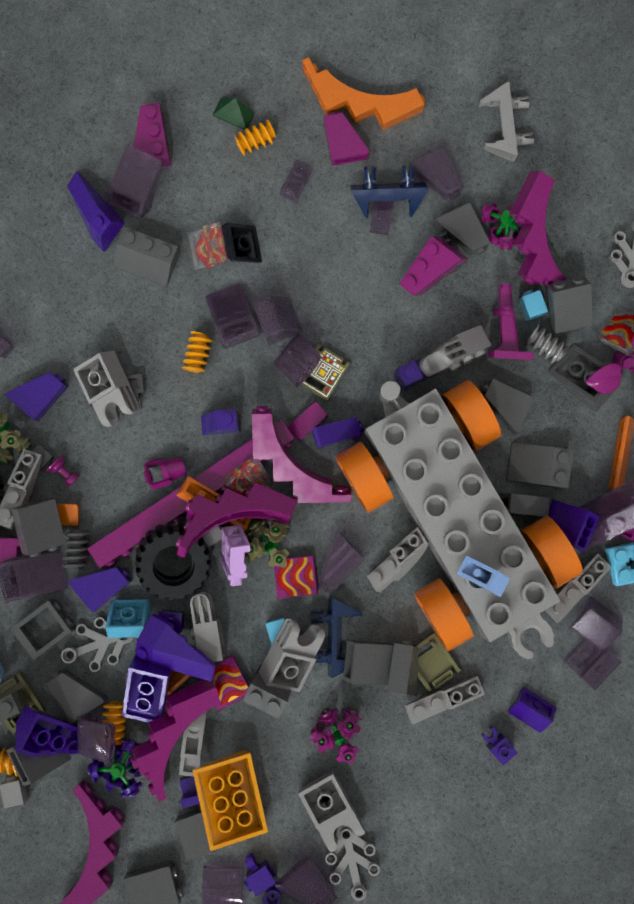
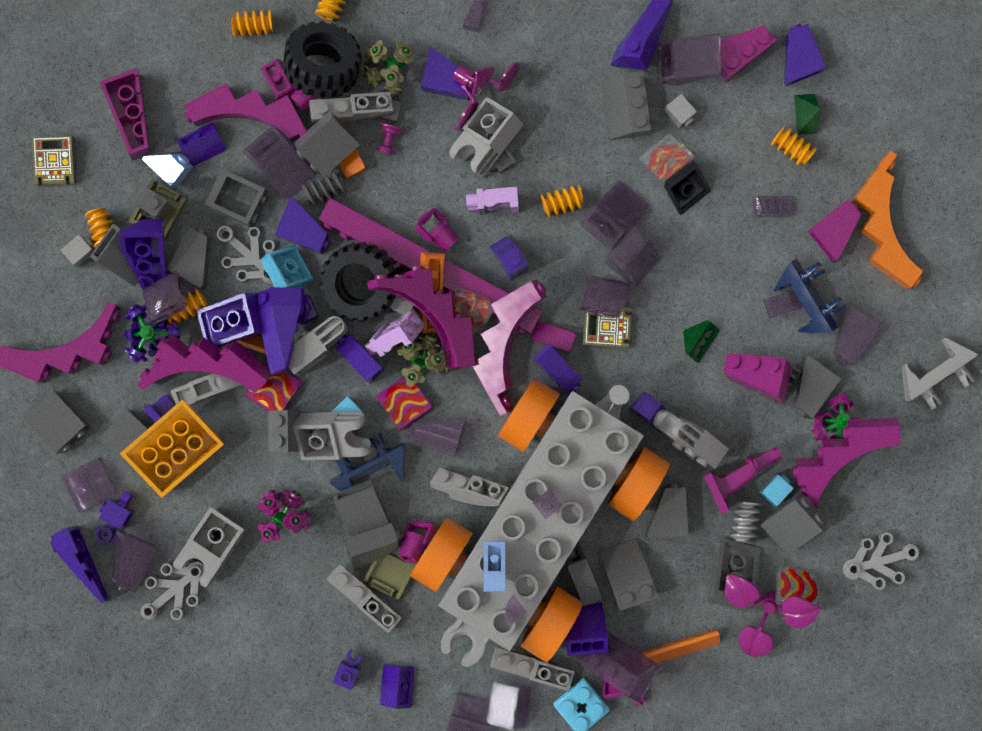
camera: 65 degrees right, 0 degrees up
(56, 368) = (479, 80): none -> magenta plant
(164, 409) = (493, 199): none -> lavender hips
(175, 214) = (680, 111): none -> light grey brick
(182, 90) = (801, 55): none -> dark purple slope
(238, 596) = (359, 358): none -> dark purple slope
(374, 302) = (699, 338): none -> dark green slope
(422, 632) = (415, 544): none -> magenta piece
(453, 502) = (547, 503): none -> clear purple brick
(529, 578) = (514, 609): none -> clear purple tile

